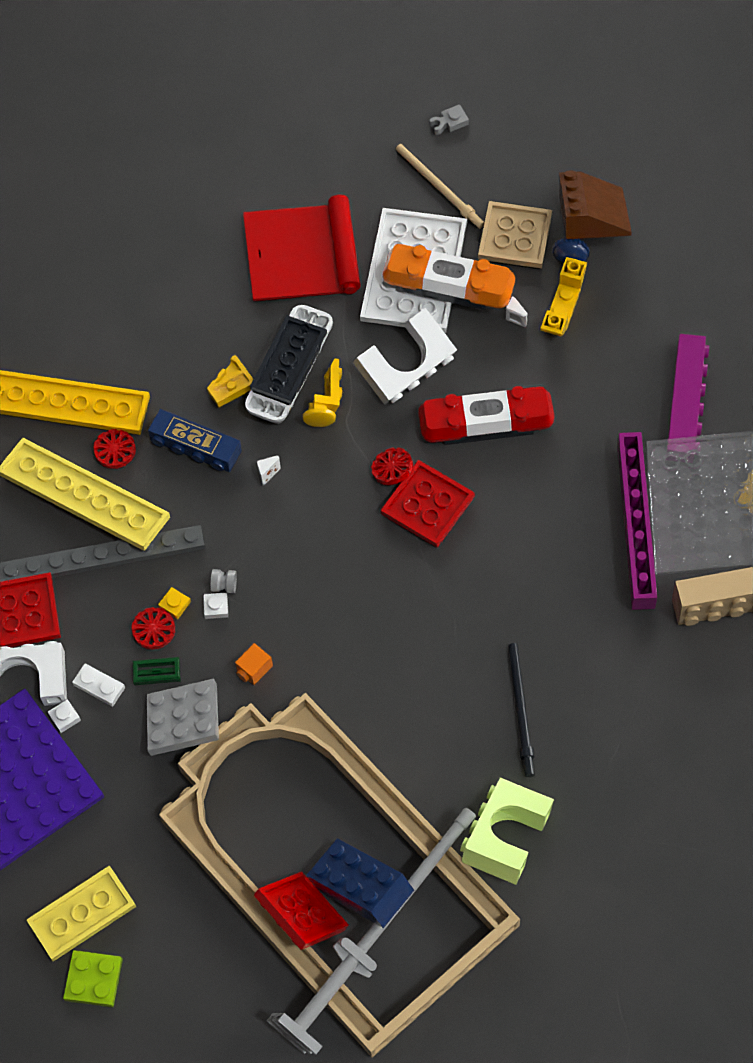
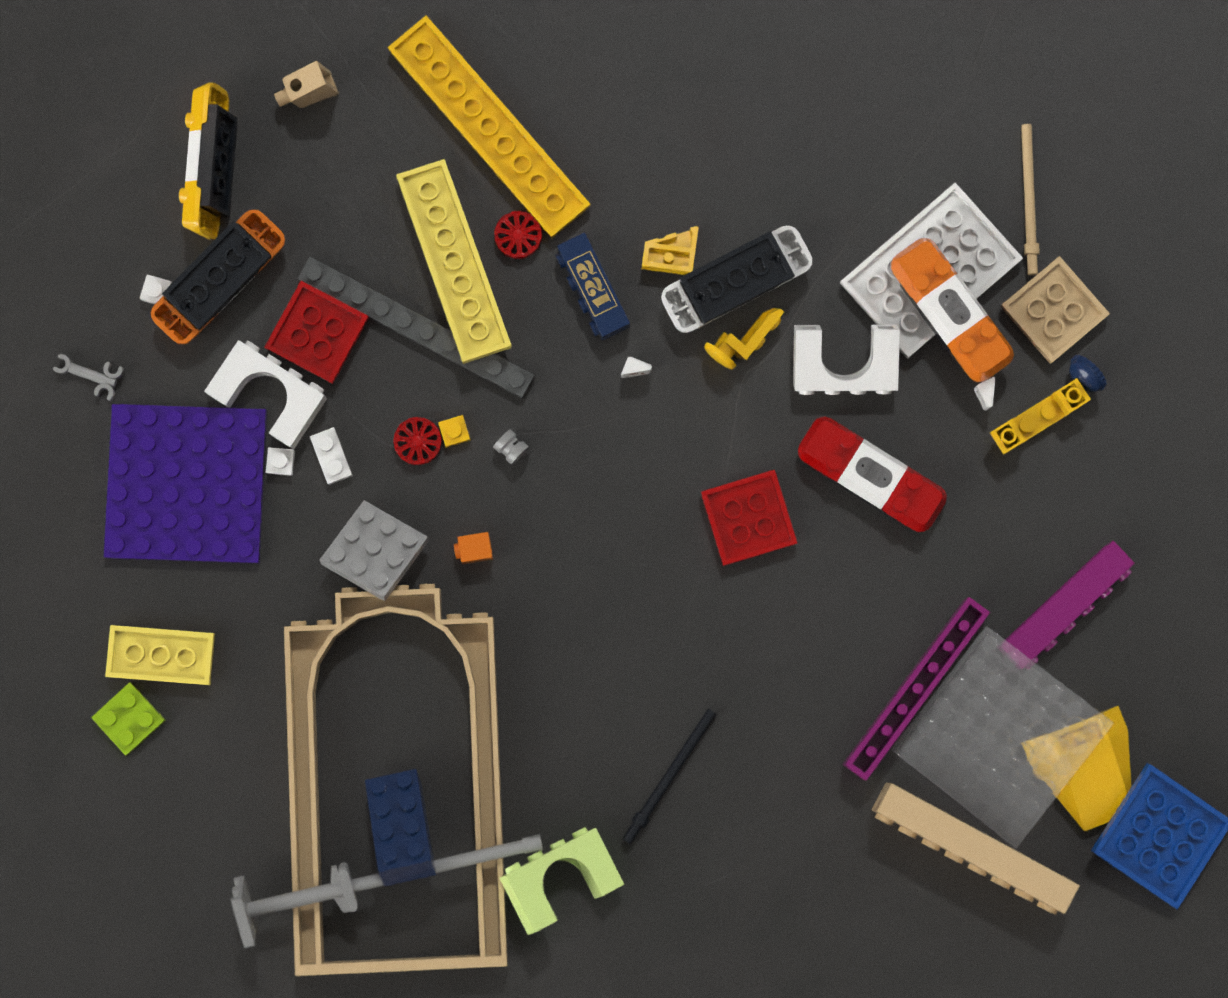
camera: 35 degrees right, 20 degrees up
(156, 671) = (407, 496): dark green tile -> none
(215, 605) = (487, 463): white plate -> none
(301, 910) = (334, 808): red plate -> none
(302, 251) = (846, 167): red door -> none
(392, 466) = (747, 455): red wheel -> none
(451, 118) = (1102, 135): light grey plate -> none
(592, 207) = (1146, 347): reddish brown slope -> none

